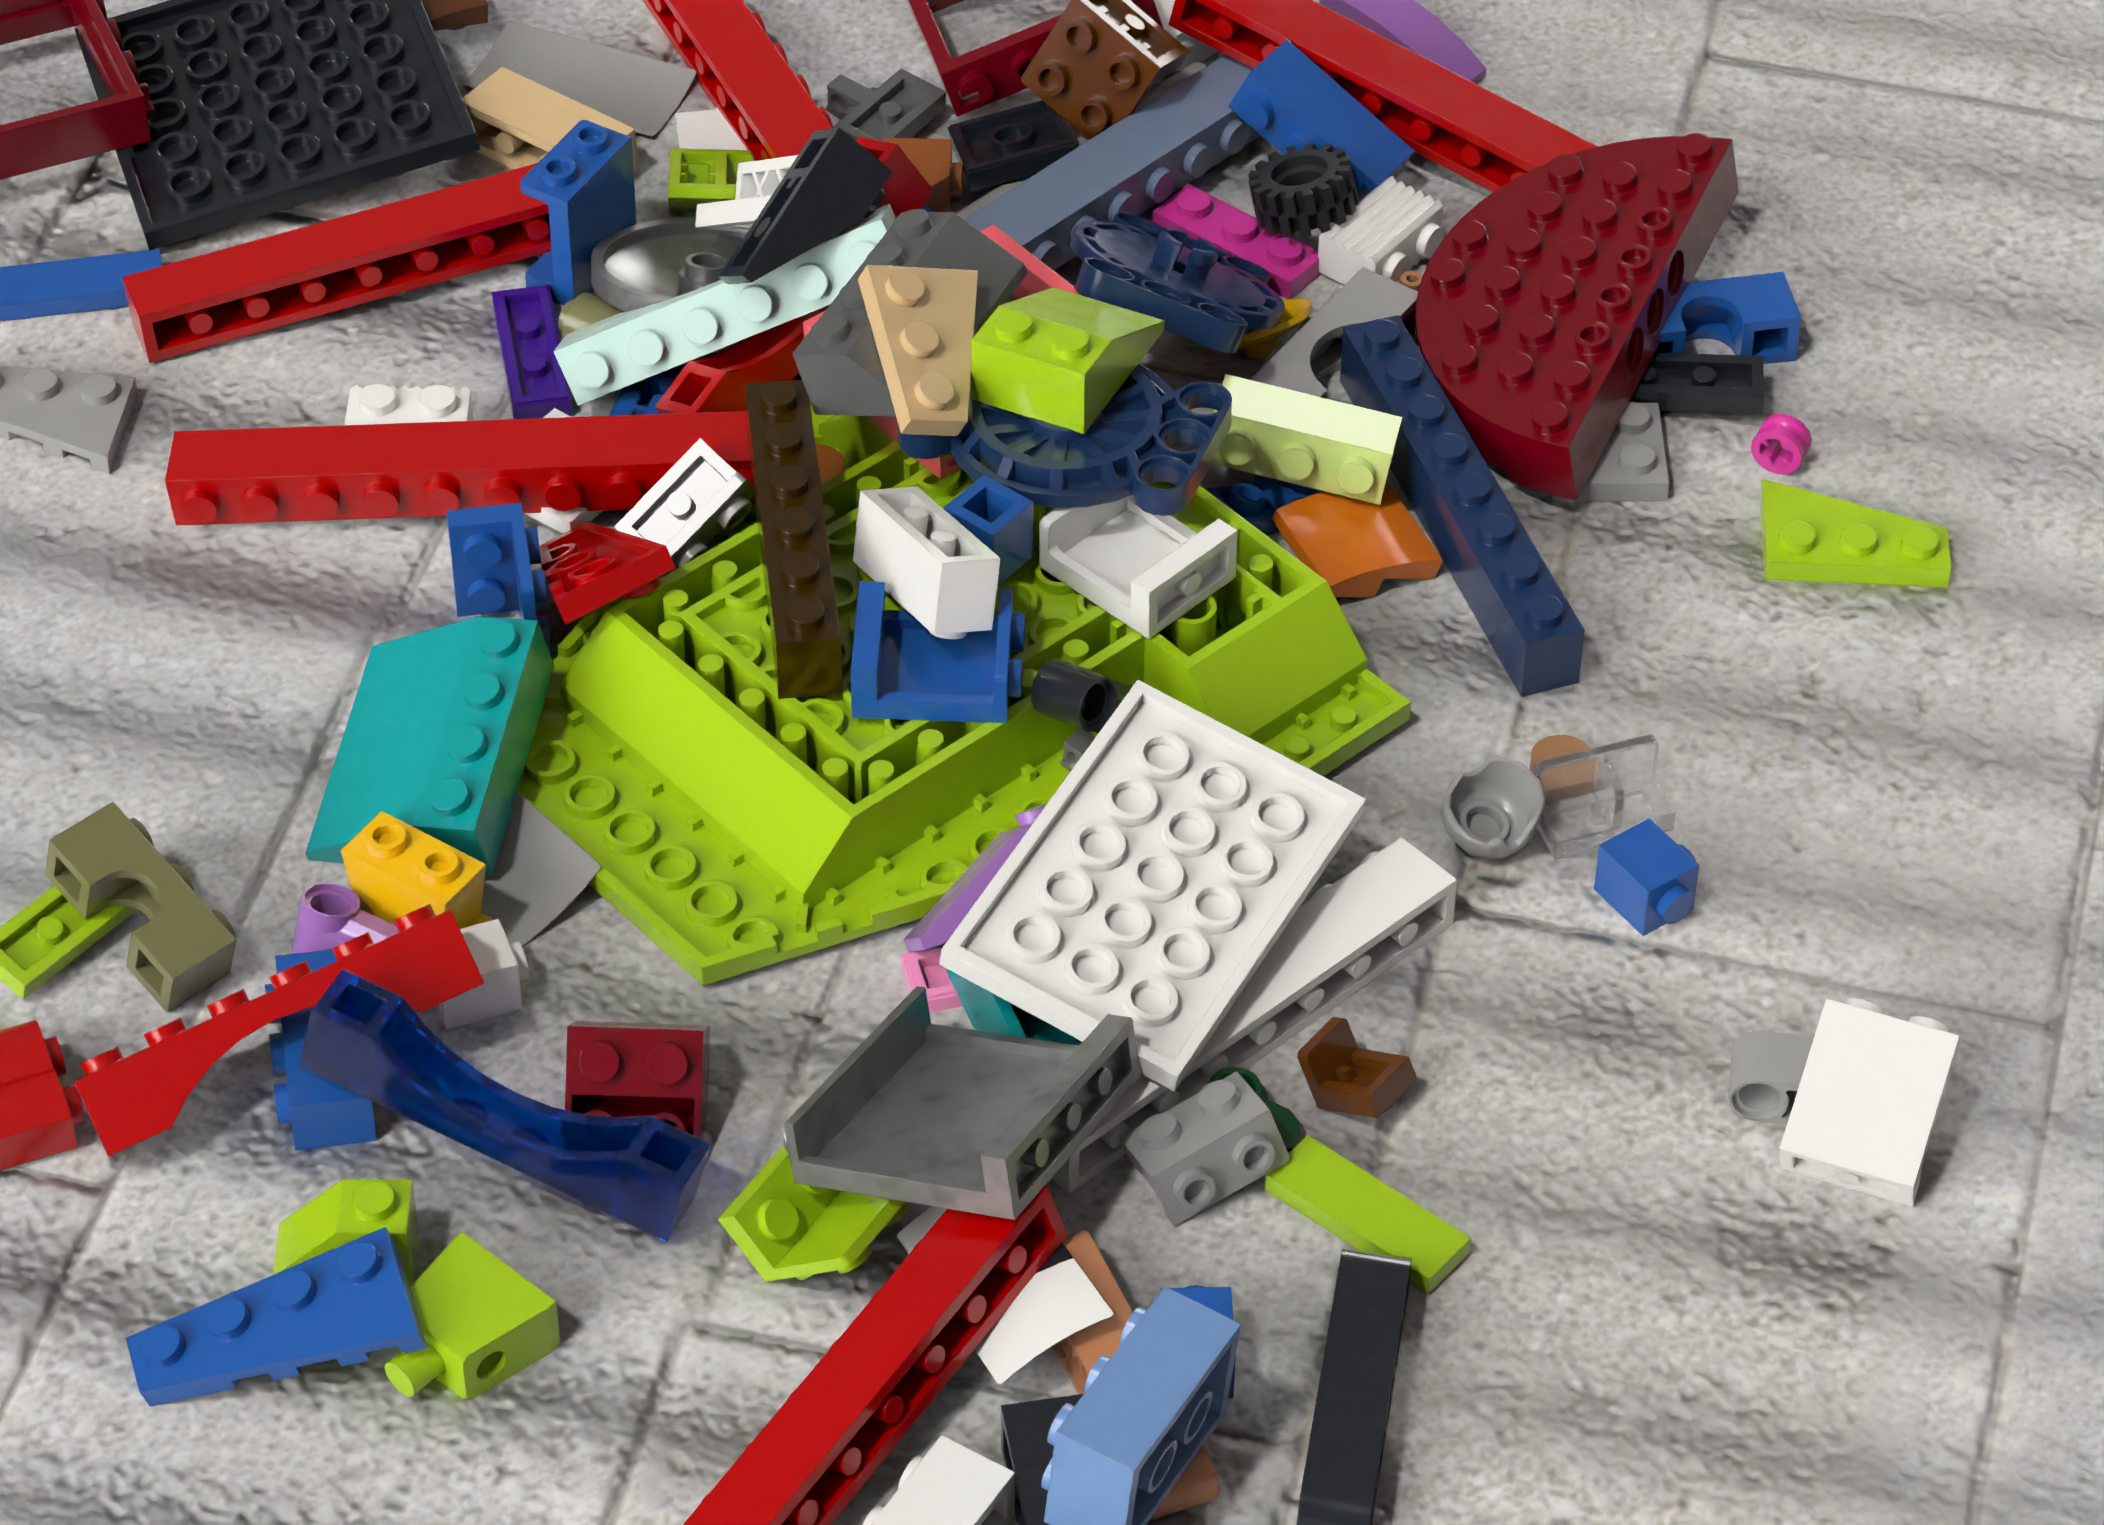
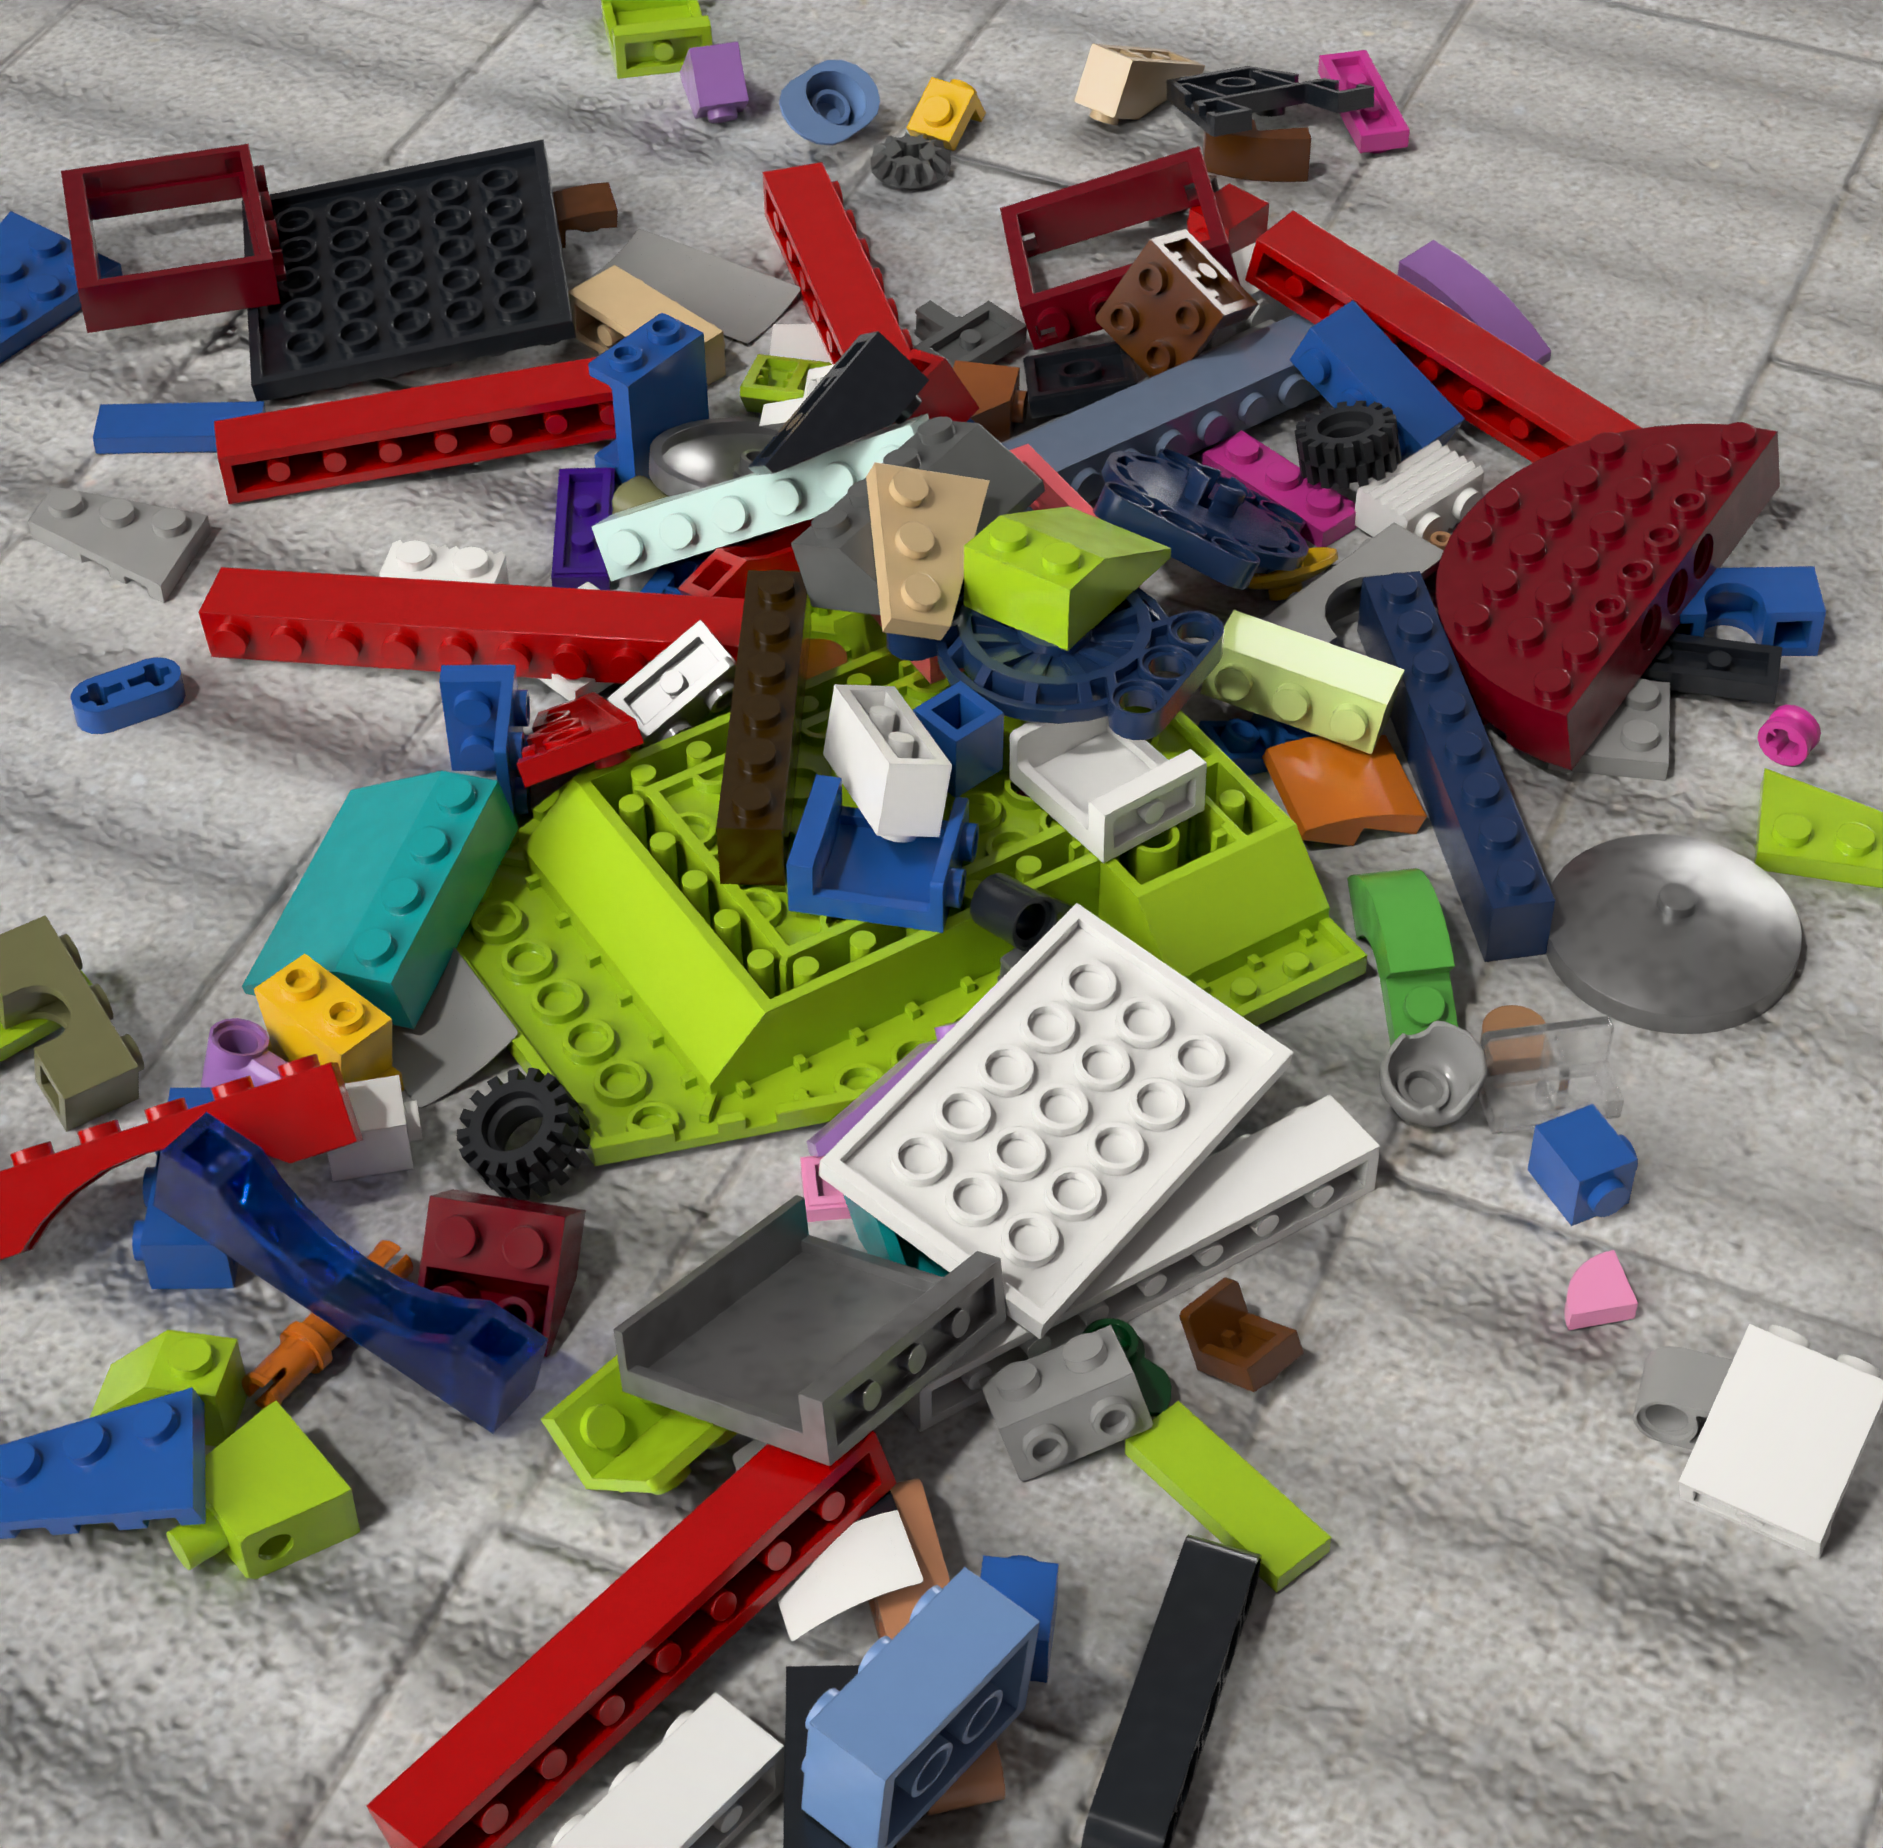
camera: 10 degrees right, 0 degrees up
(104, 574) = (128, 695): none -> blue beam
(468, 1183) = (309, 1344): none -> orange pin
(615, 935) = (503, 1113): none -> black tyre
(1451, 685) = (1410, 947): none -> bright green arch
(1680, 994) = (1599, 1293): none -> bright pink tile
(1697, 649) = (1672, 934): none -> flat silver dish

